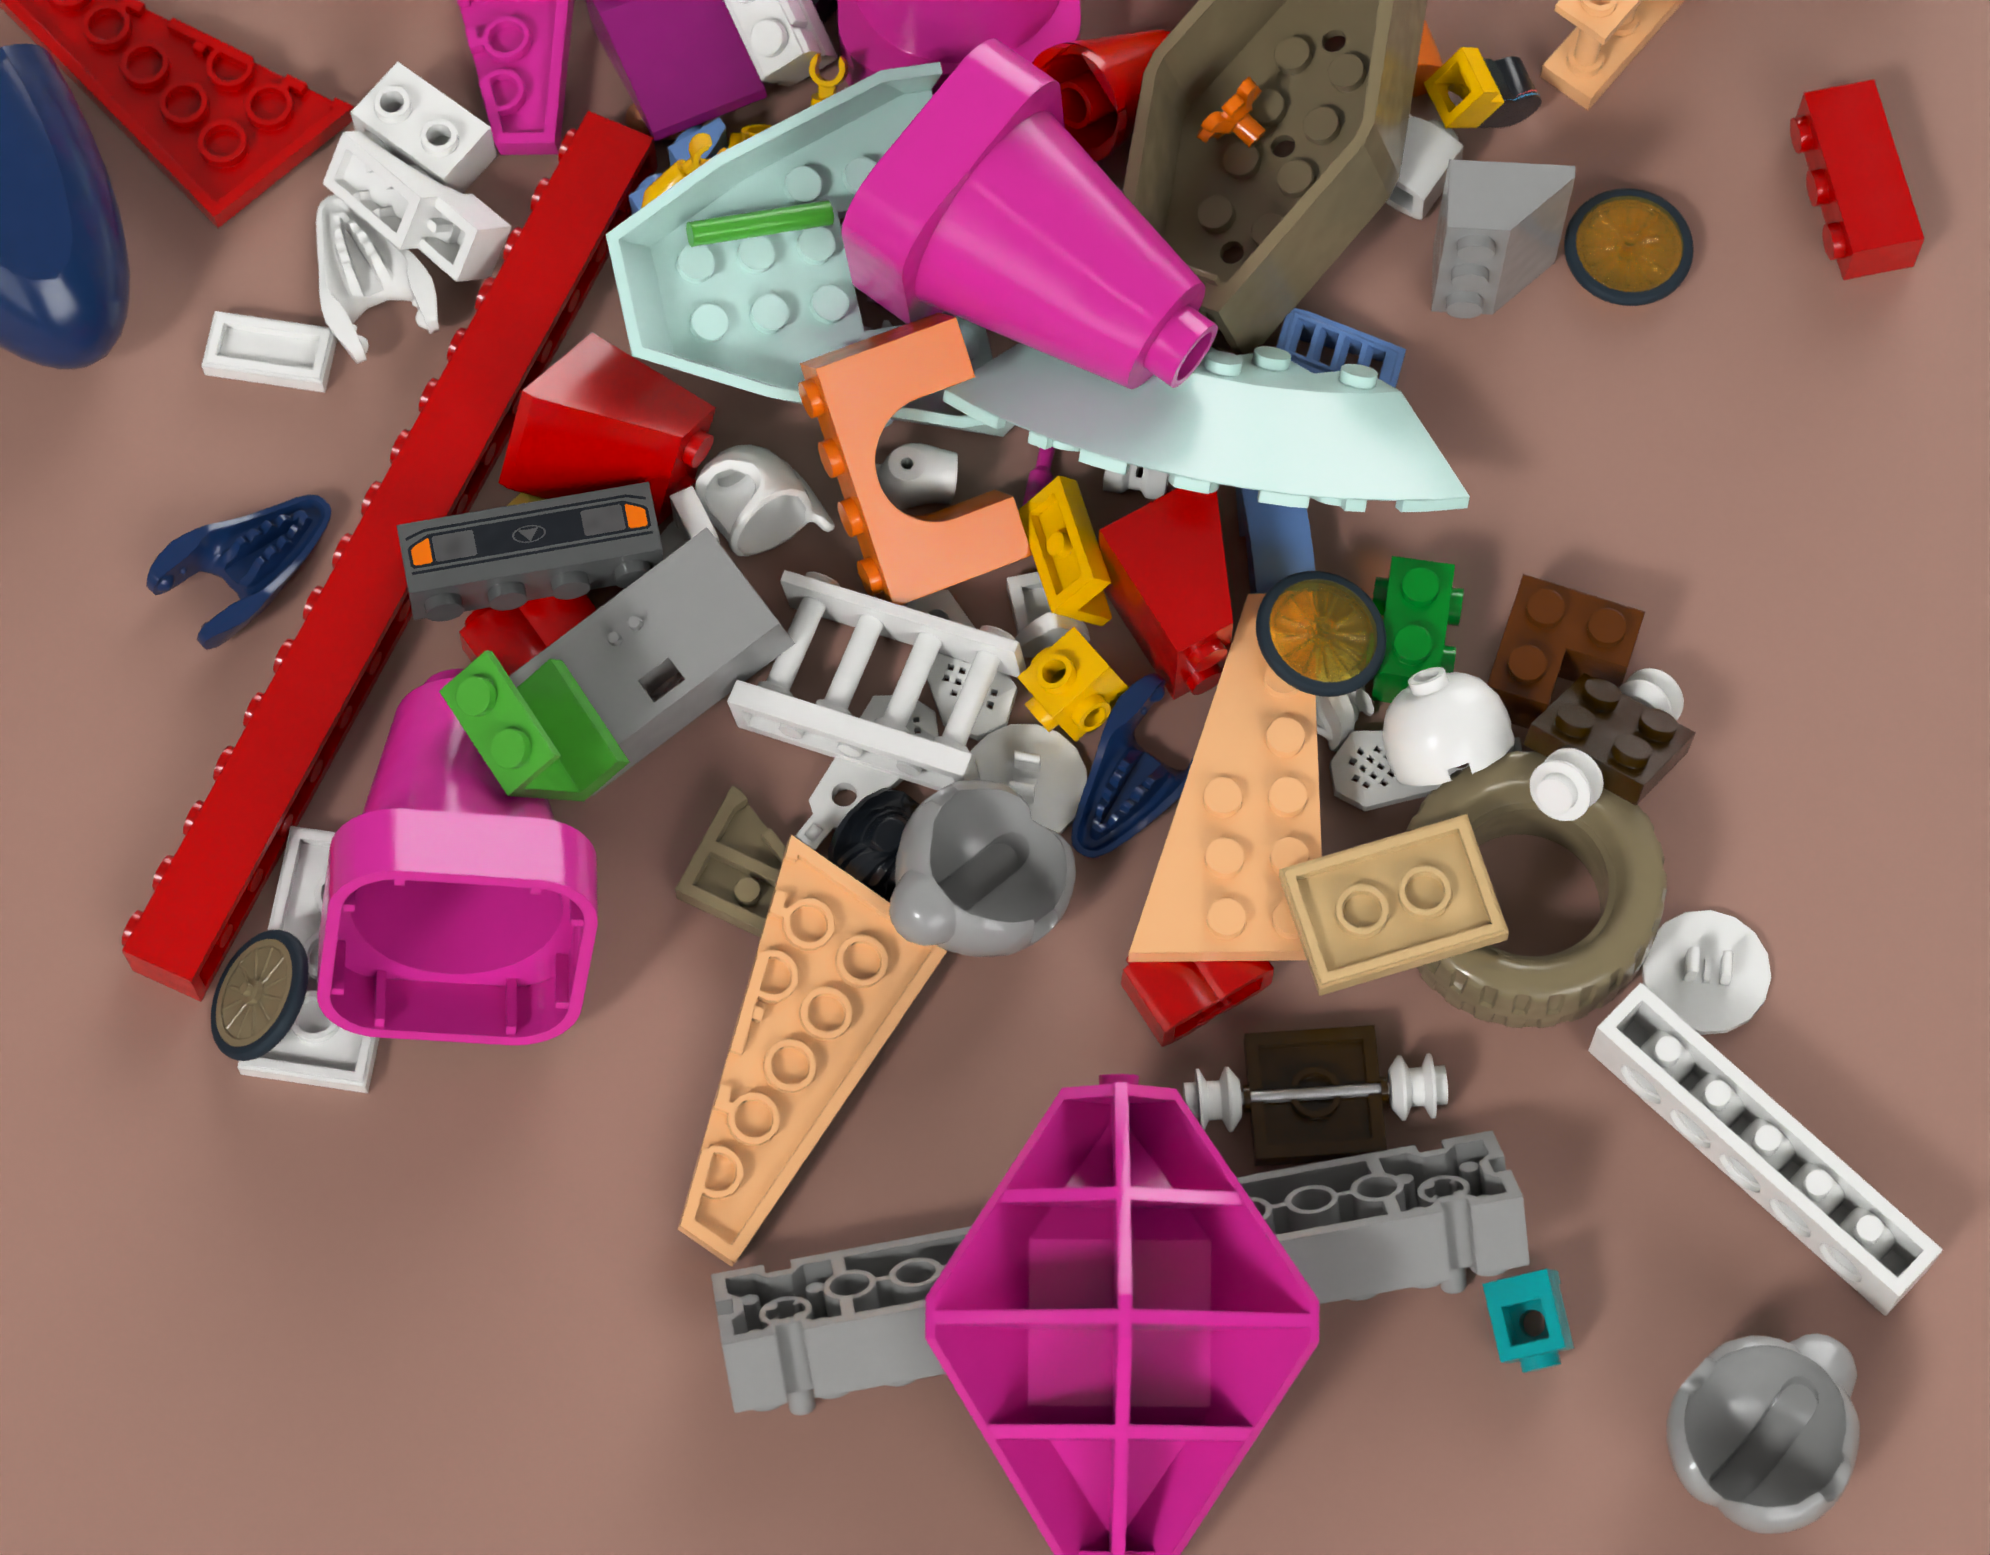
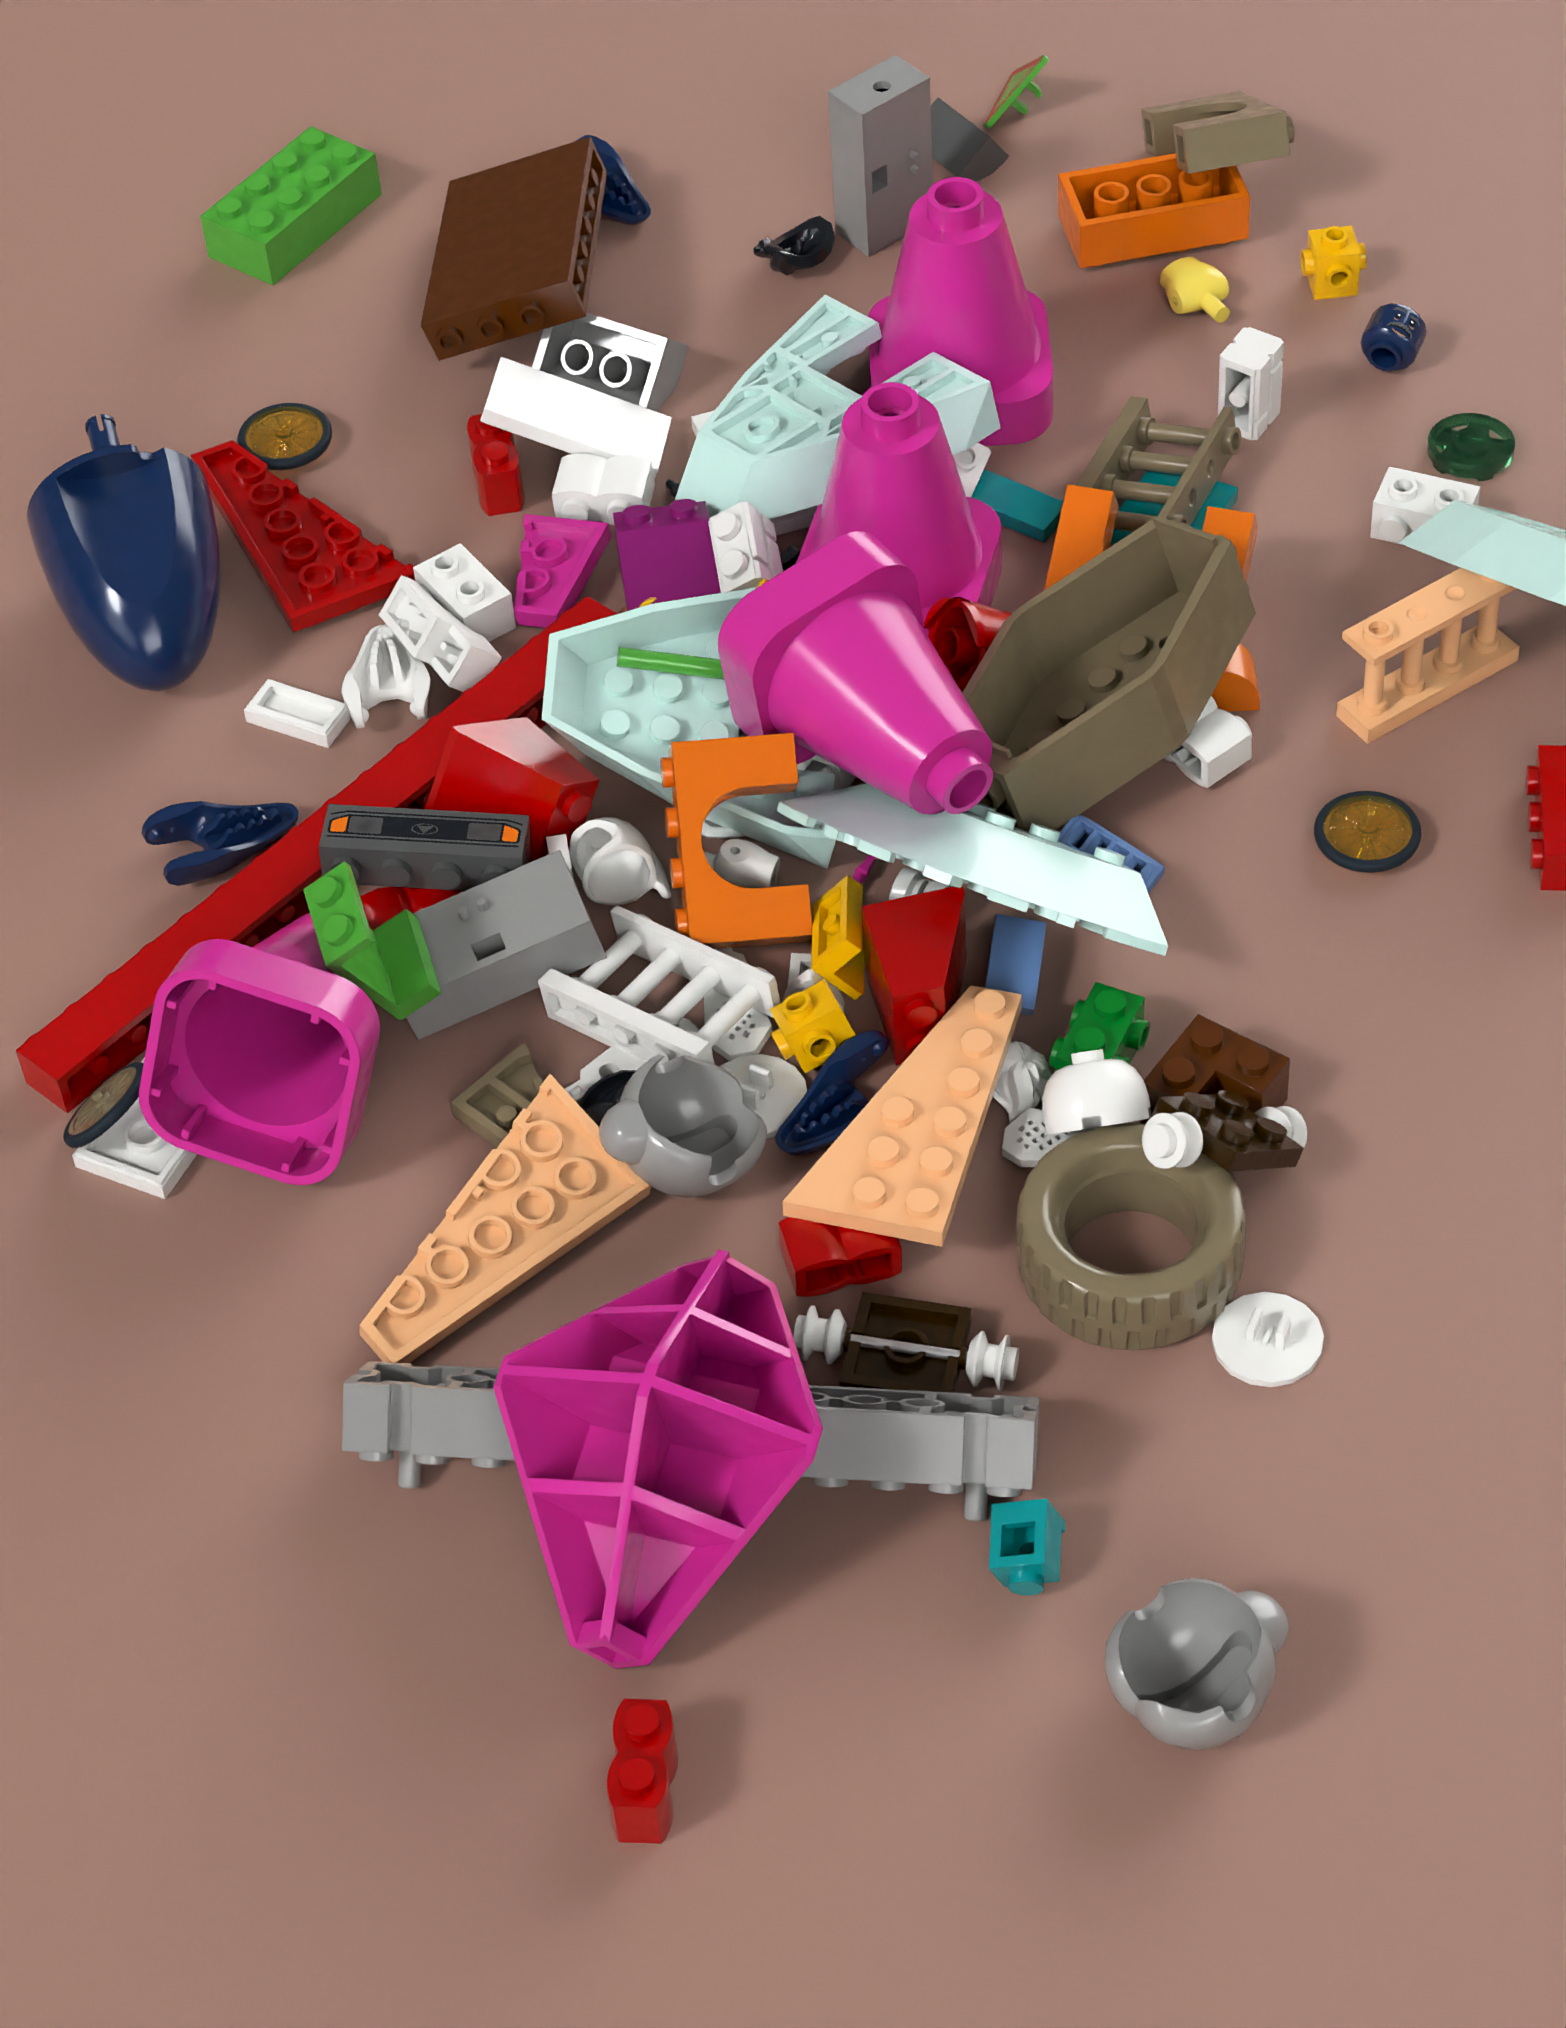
camera: 20 degrees right, 20 degrees down
(1235, 117) = (1071, 673): orange plant -> none
(1321, 633) = (1016, 1016): clear yellow wheel -> none
(1393, 904) = (1004, 1203): tan tile -> none
(1491, 91) = (1280, 705): yellow leg -> none
(1496, 232) = (1253, 782): light grey slope -> none
(1763, 1149) = (1269, 1464): white brick -> none

